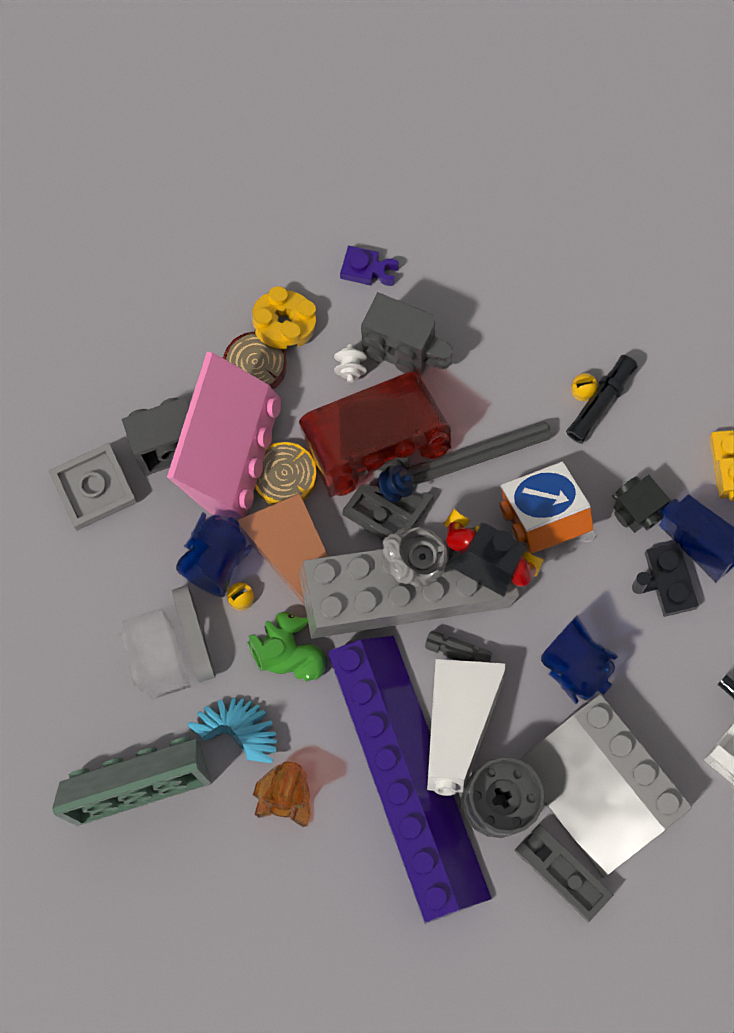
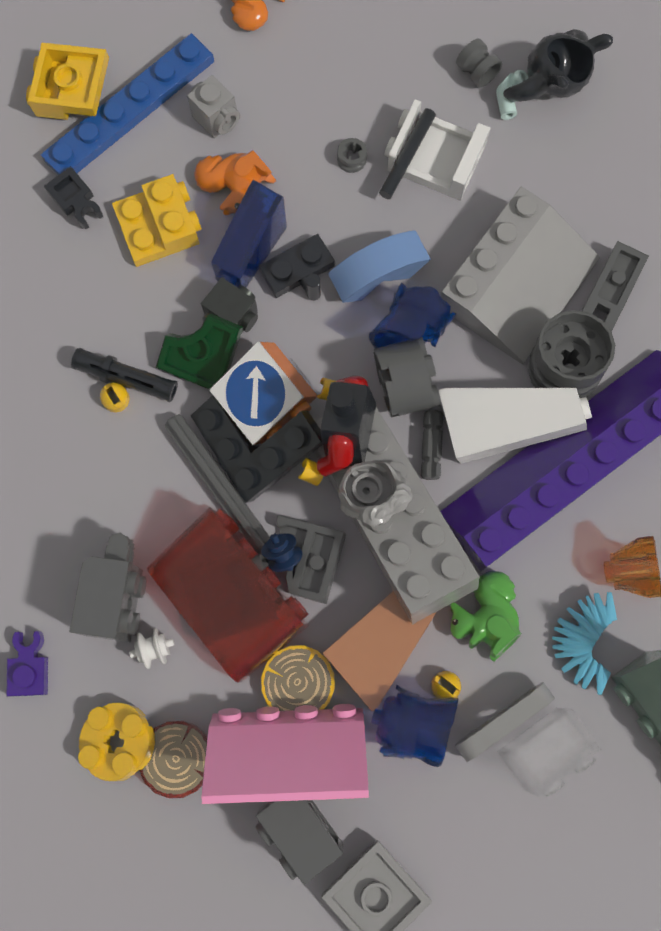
camera: 110 degrees left, 5 degrees up
(482, 482) = (252, 468): none -> black plate
(524, 636) = (406, 377): none -> dark grey brick
(601, 467) = (203, 354): none -> dark green tile
(648, 651) = (385, 260): none -> medium blue brick

